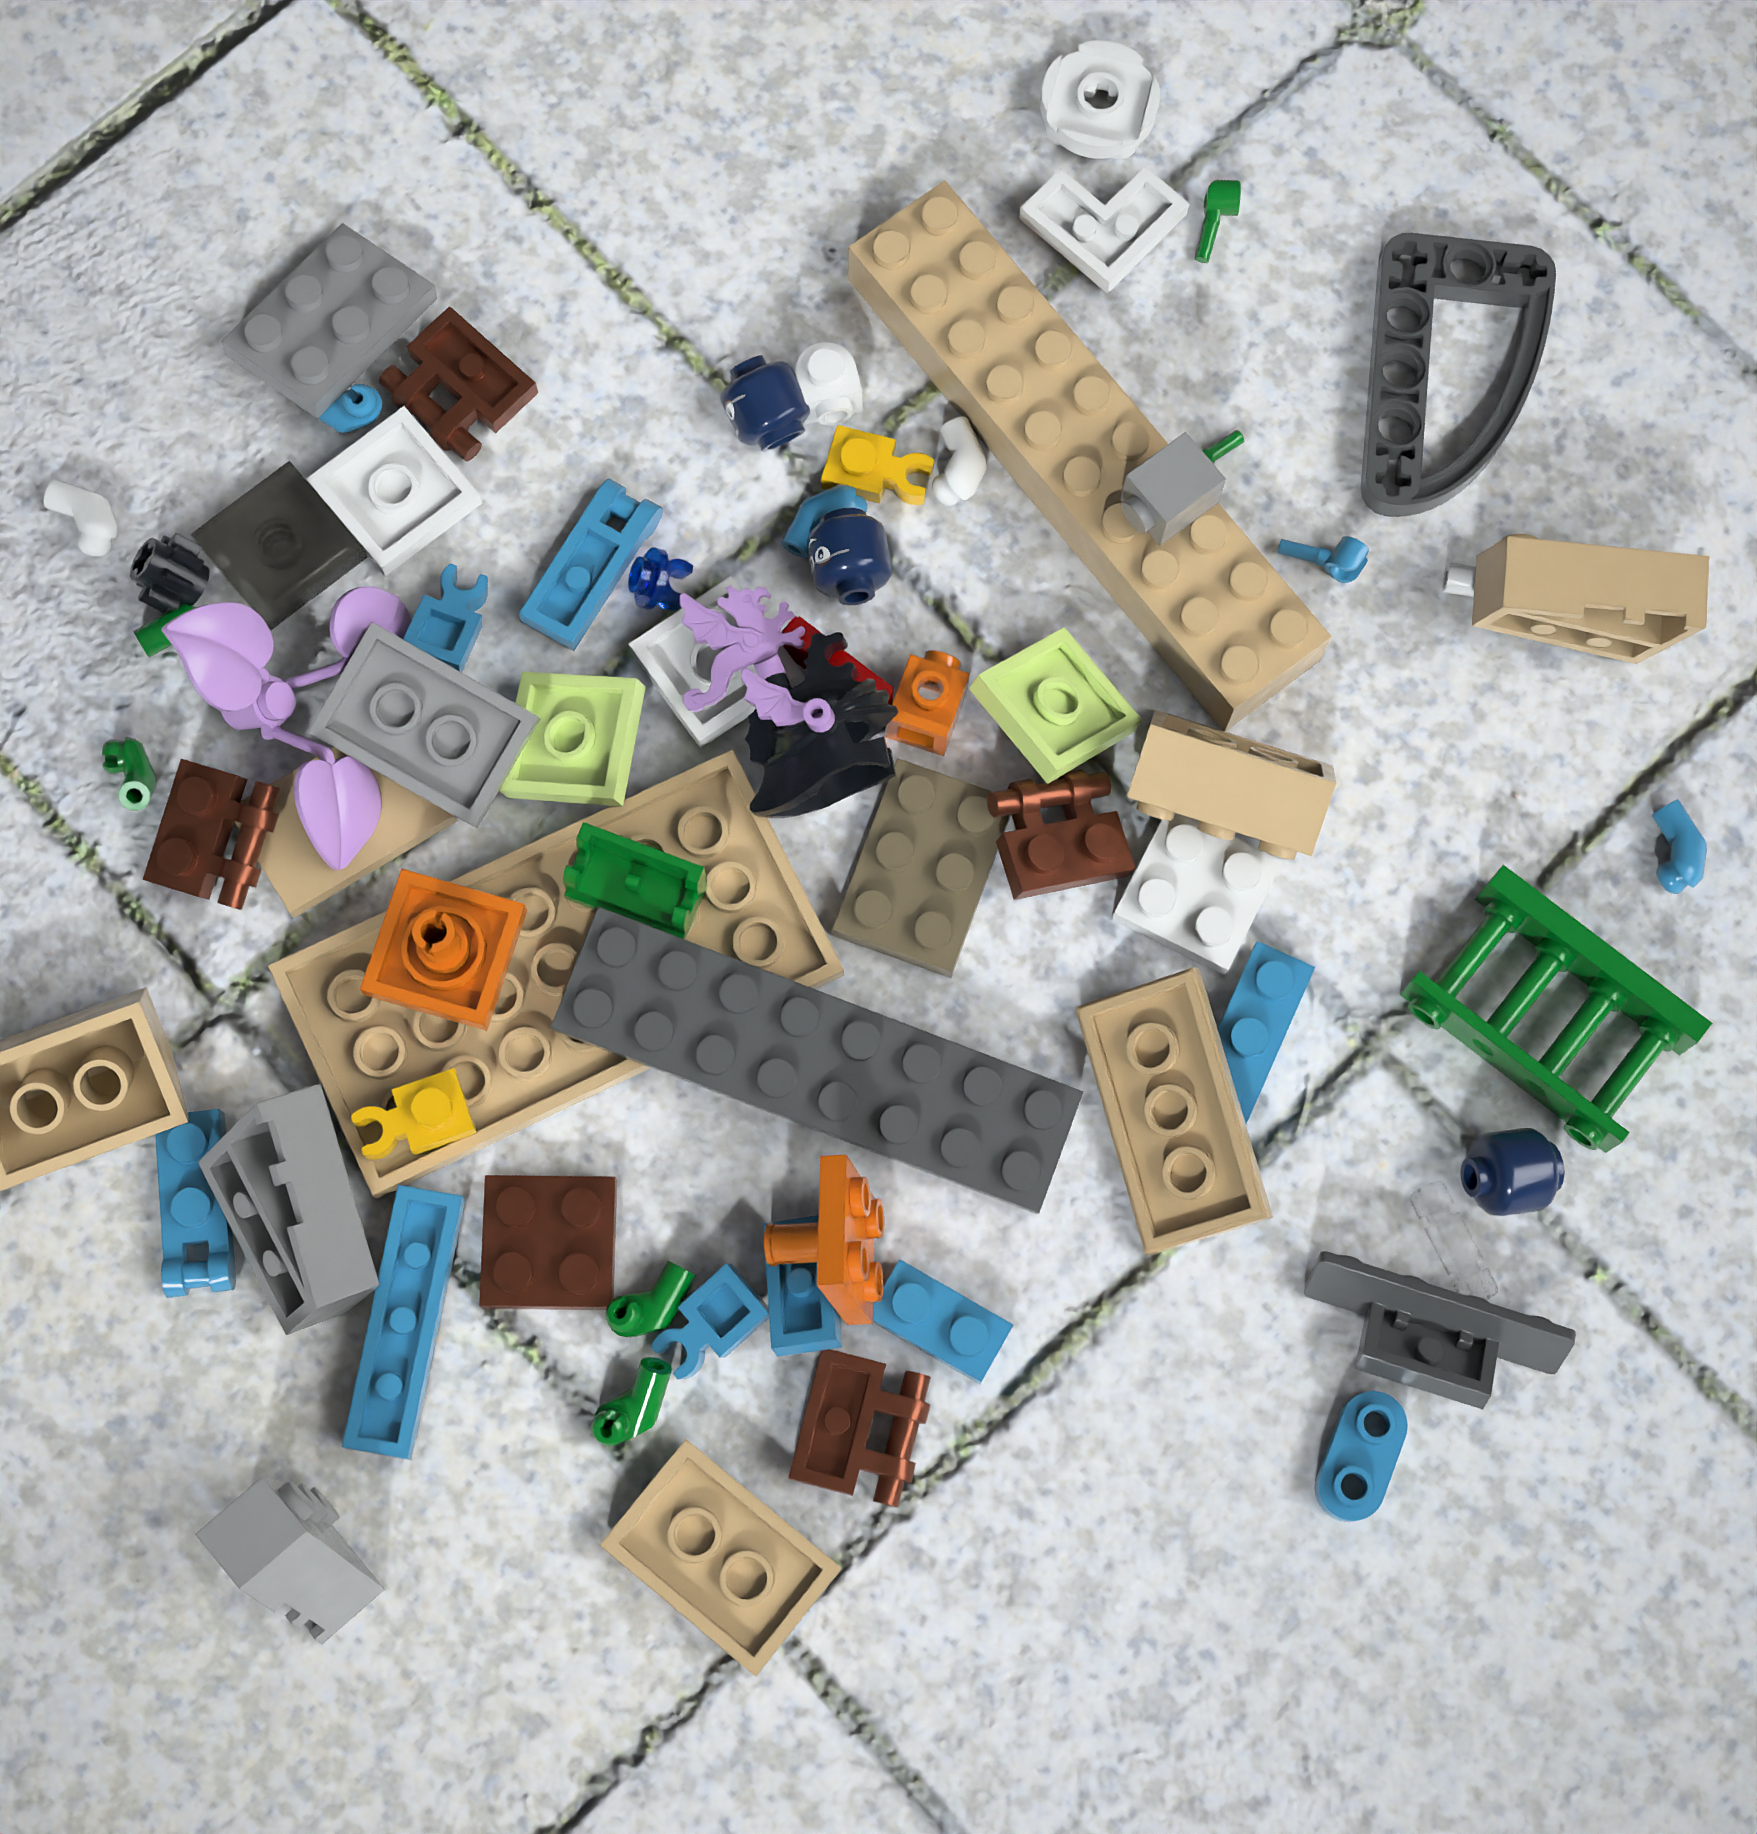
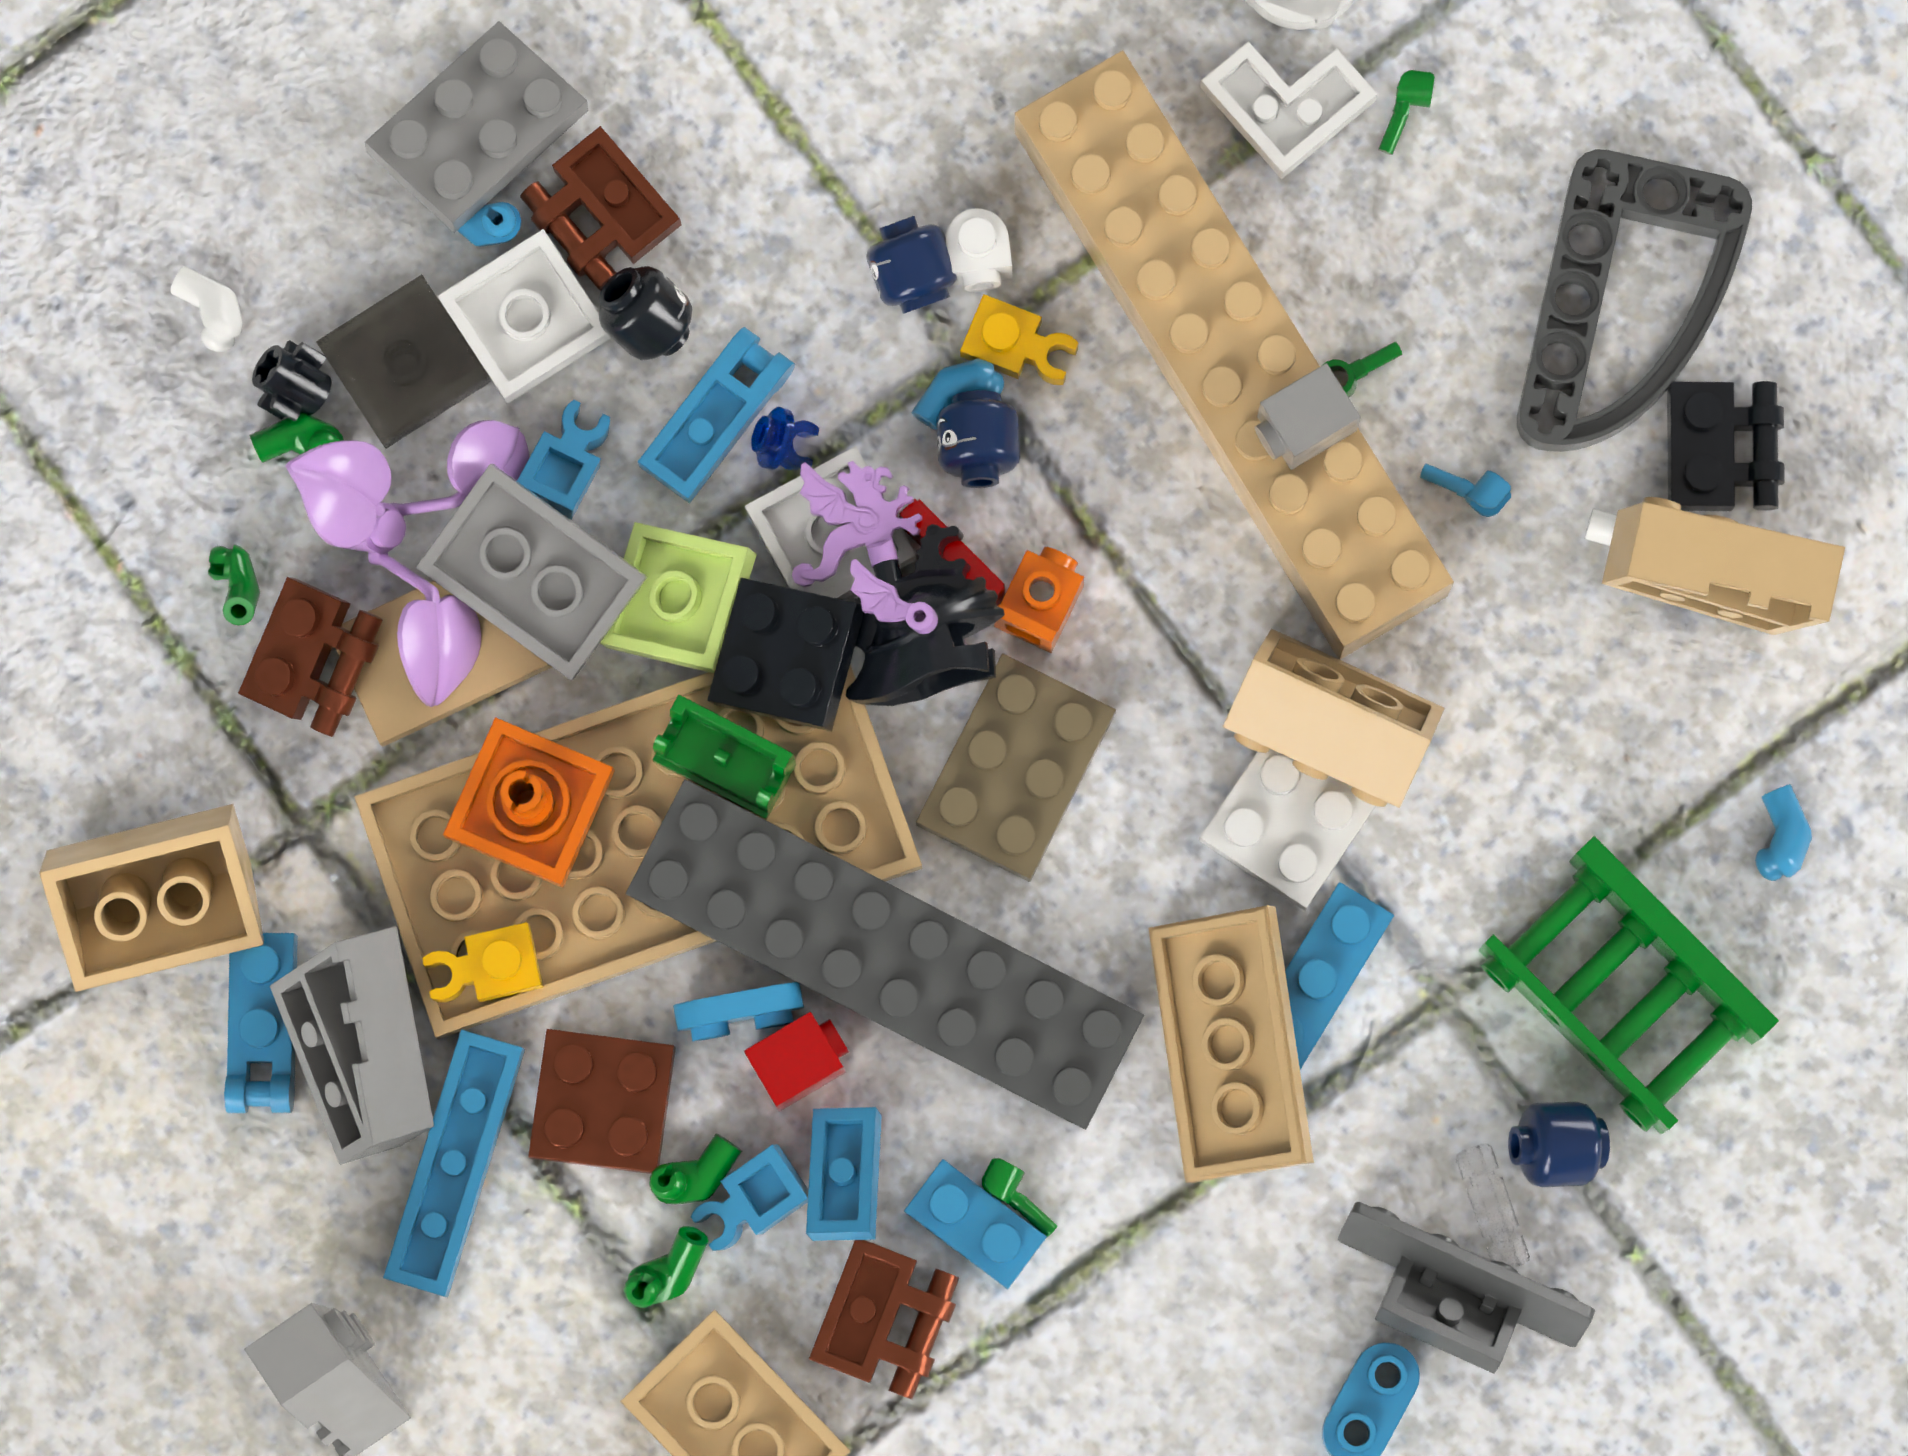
camera: 15 degrees right, 5 degrees up
(511, 472) = (645, 312): none -> black head
(686, 776) = (786, 654): none -> black plate
(703, 1125) = (766, 1005): none -> dark azure plate
(742, 1176) = (798, 1059): none -> red brick
(838, 1242) = (883, 1138): orange plate -> none
(961, 1275) = (1002, 1181): none -> green hand
(966, 464) = (1110, 352): white arm -> none
(1055, 704) = (1167, 617): yellowish green plate -> none
(1061, 853) = (1155, 771): copper plate -> none
(1542, 492) = (1702, 445): none -> black plate

